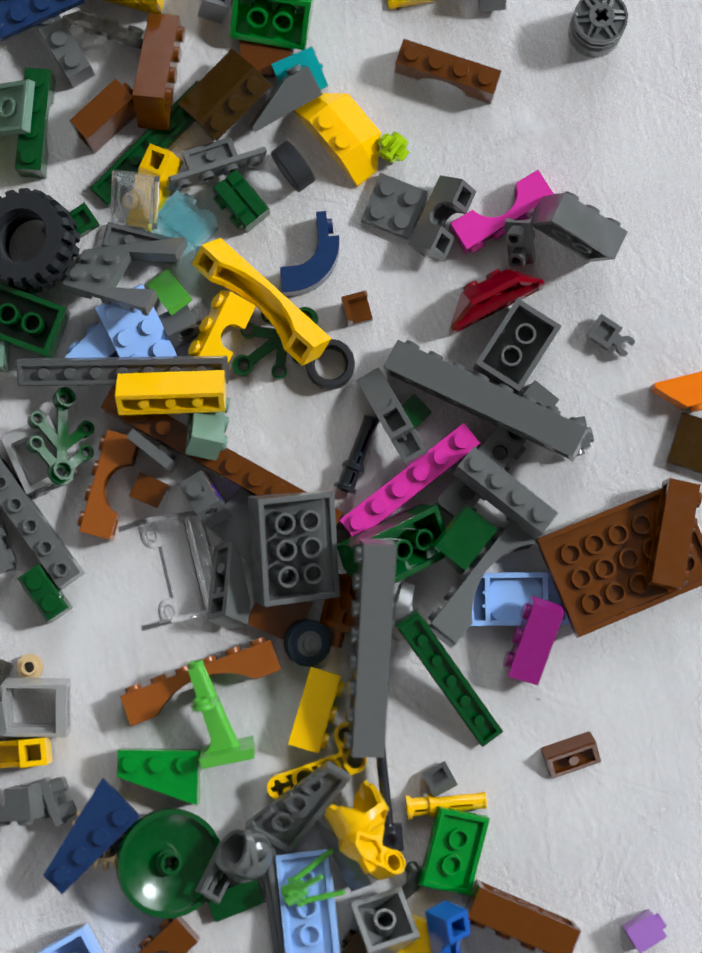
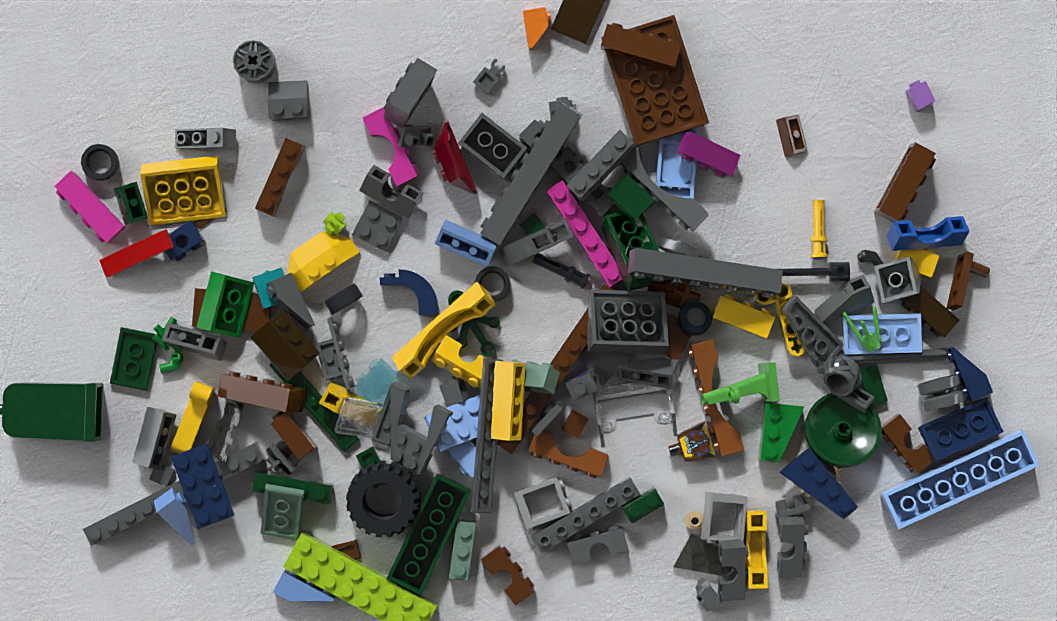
camera: 80 degrees left, 5 degrees up
(59, 439) = (532, 485): dark green plant -> none
(82, 99) = (275, 452): none -> dark grey hips
(134, 656) = (693, 443): none -> torso
(170, 292) = (429, 397): bright green tile -> none
(240, 201) = (365, 339): dark green brick -> none
(356, 308) = (453, 261): reddish brown panel -> none
(362, 830) = (833, 290): yellow piece -> none
(382, 321) = (465, 243): none -> medium blue brick
(439, 779) = (800, 231): dark grey plate -> none
(449, 677) = (730, 218): dark green tile -> none
(453, 850) = (852, 226): green tile -> none
(549, 74) = (288, 100): none -> dark grey slope

